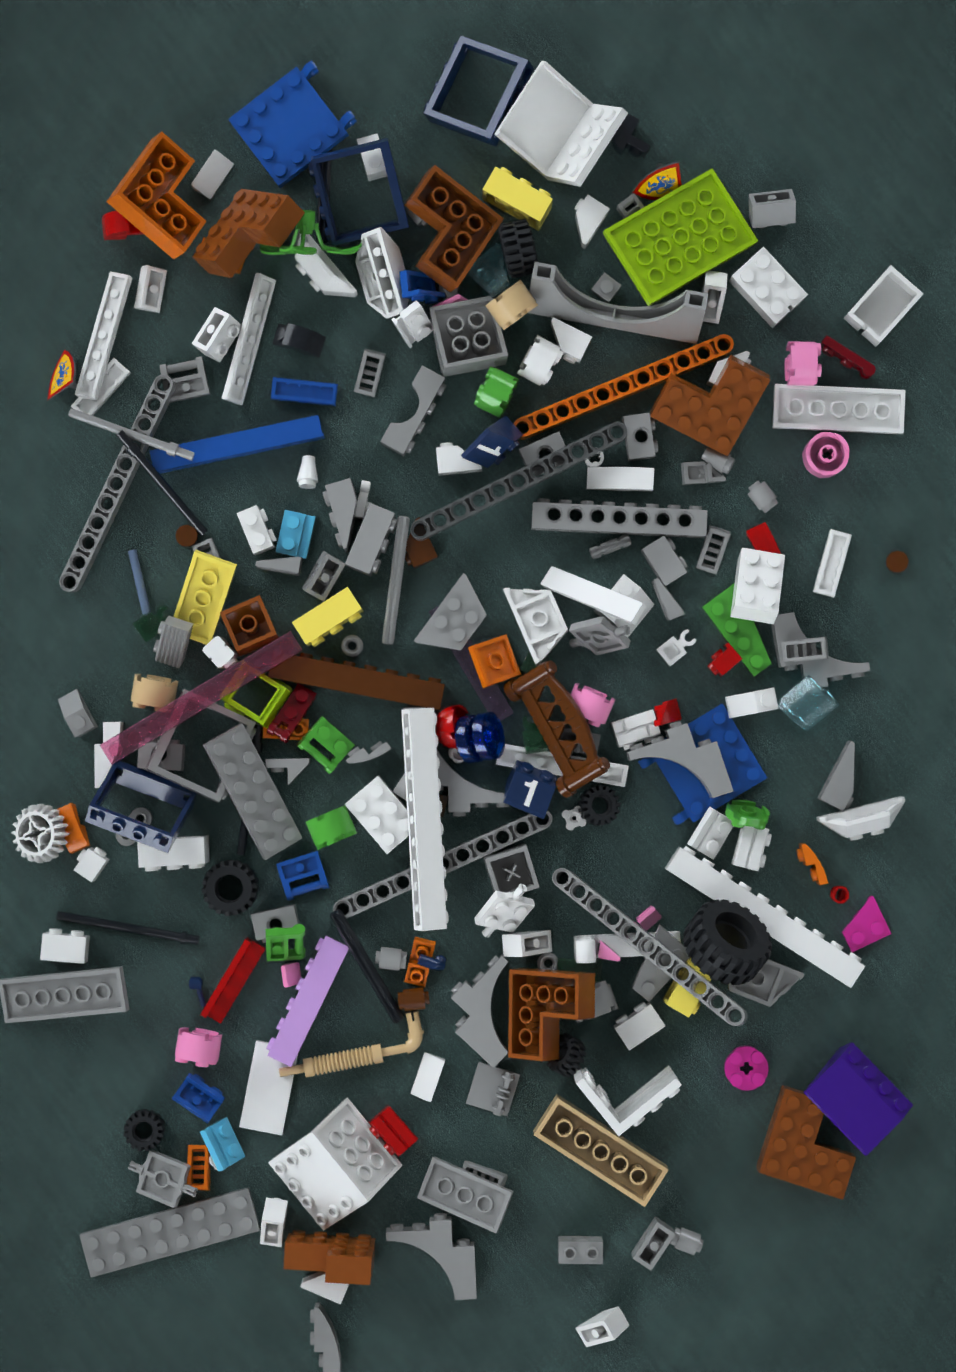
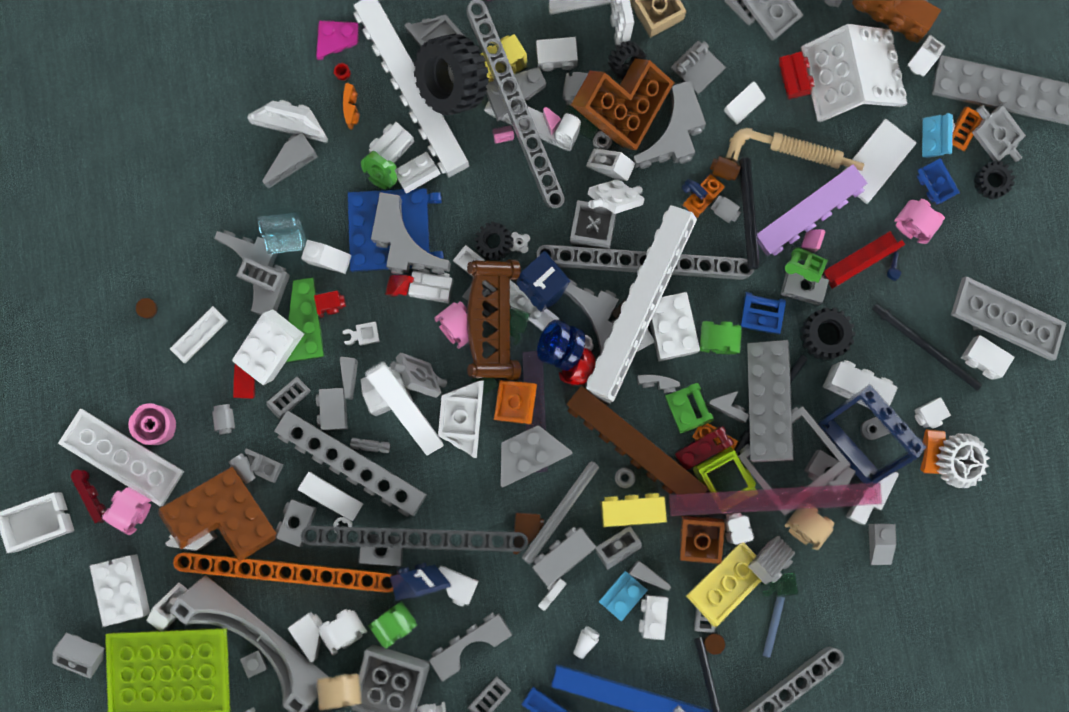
camera: 150 degrees left, 5 degrees down
(343, 501) = (570, 599): light grey slope -> none

